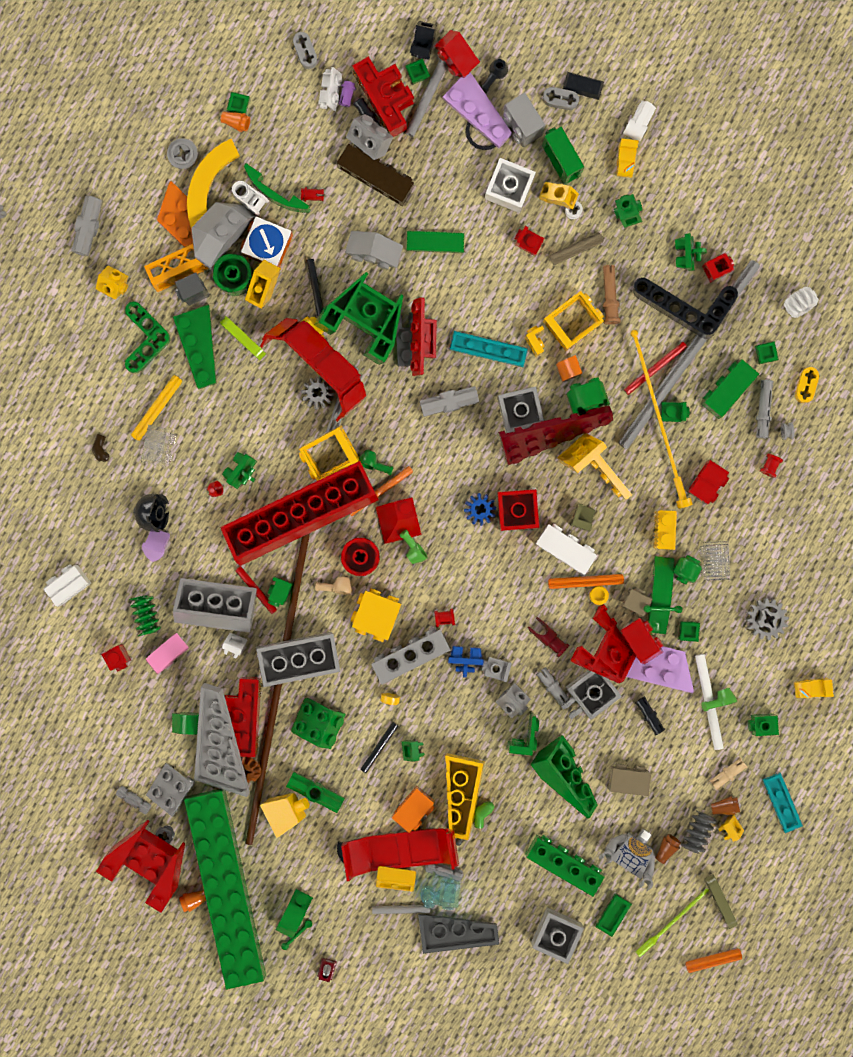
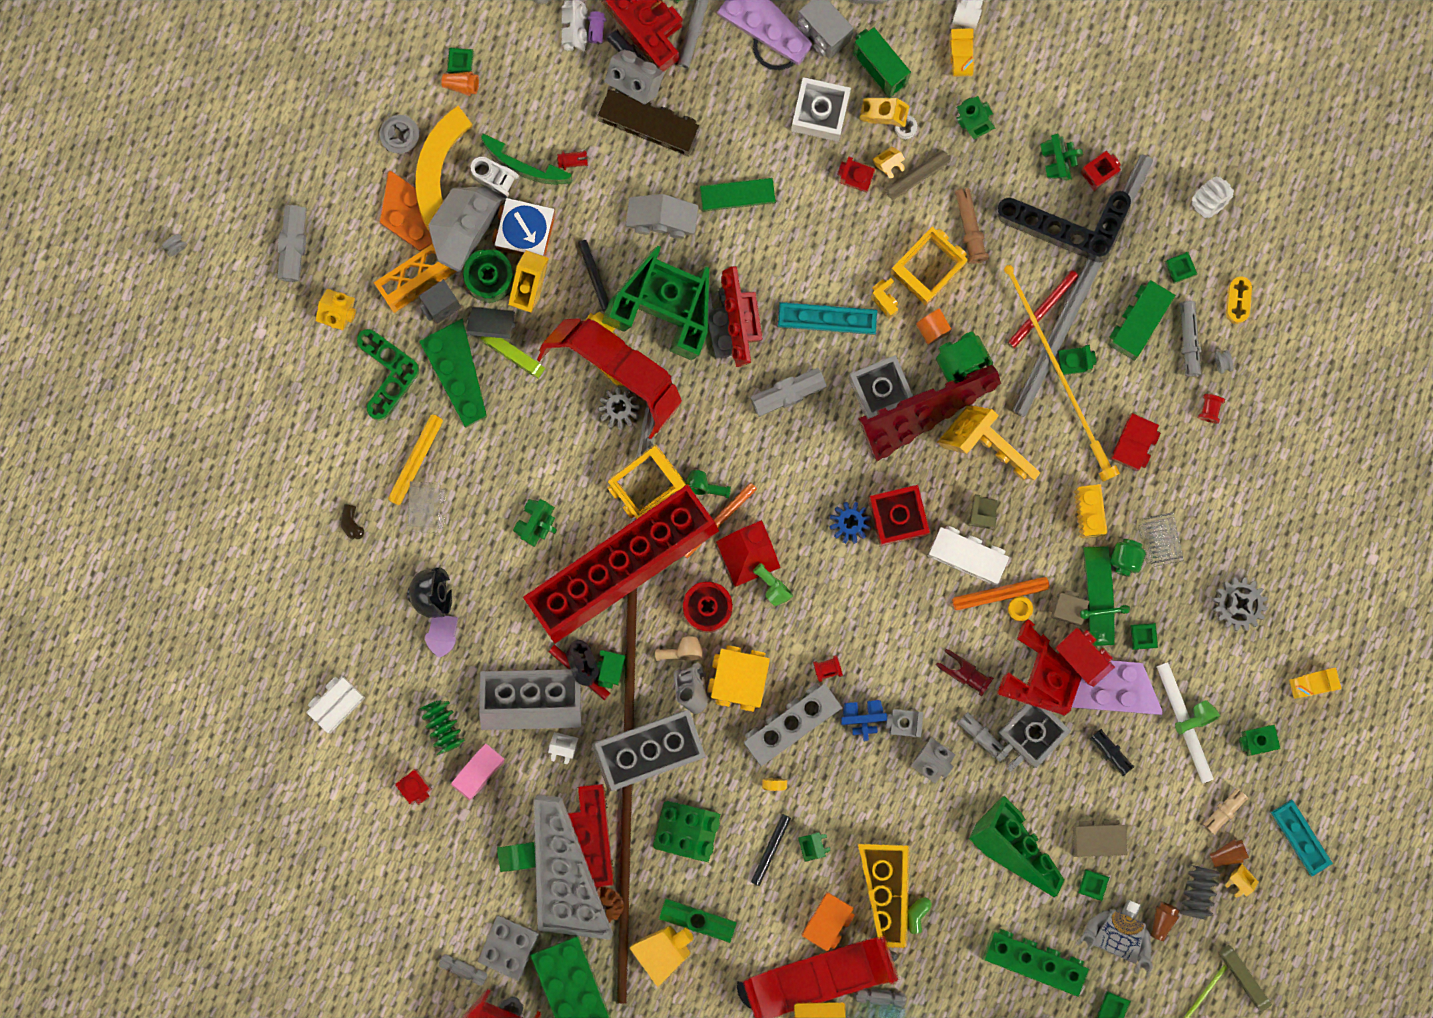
camera: 10 degrees left, 5 degrees down
(215, 489) = (507, 551): red hinge -> none
(229, 311) = (491, 323): none -> dark grey piece
(255, 584) = (579, 663): none -> black beam
(338, 616) = (691, 688): none -> light grey piece
(518, 746) = (951, 816): green bracket -> none
(555, 233) = (889, 159): none -> yellow tile
(618, 812) = (1093, 885): none -> green tile

